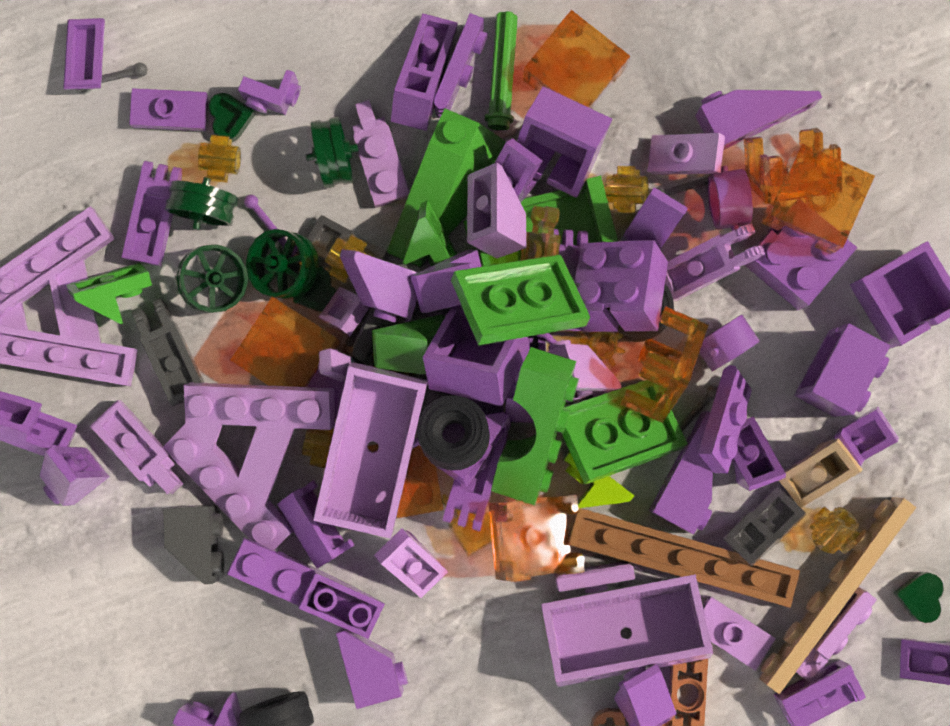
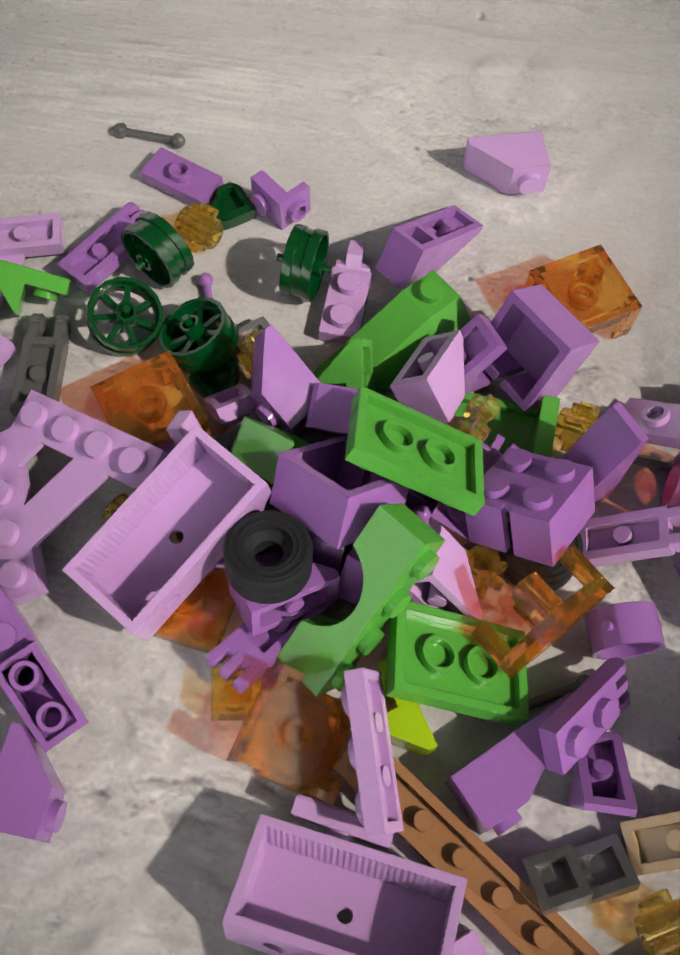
camera: 25 degrees right, 20 degrees down
(84, 53) = (138, 108): medium lavender tile -> none
(318, 539) = (65, 604): medium lavender hinge -> none
(411, 562) = (144, 690): lavender slope -> none
(459, 69) = (469, 250): medium lavender hinge -> none
(501, 87) = (506, 276): bright green axle -> none
(594, 527) = (371, 752): none -> lavender plate

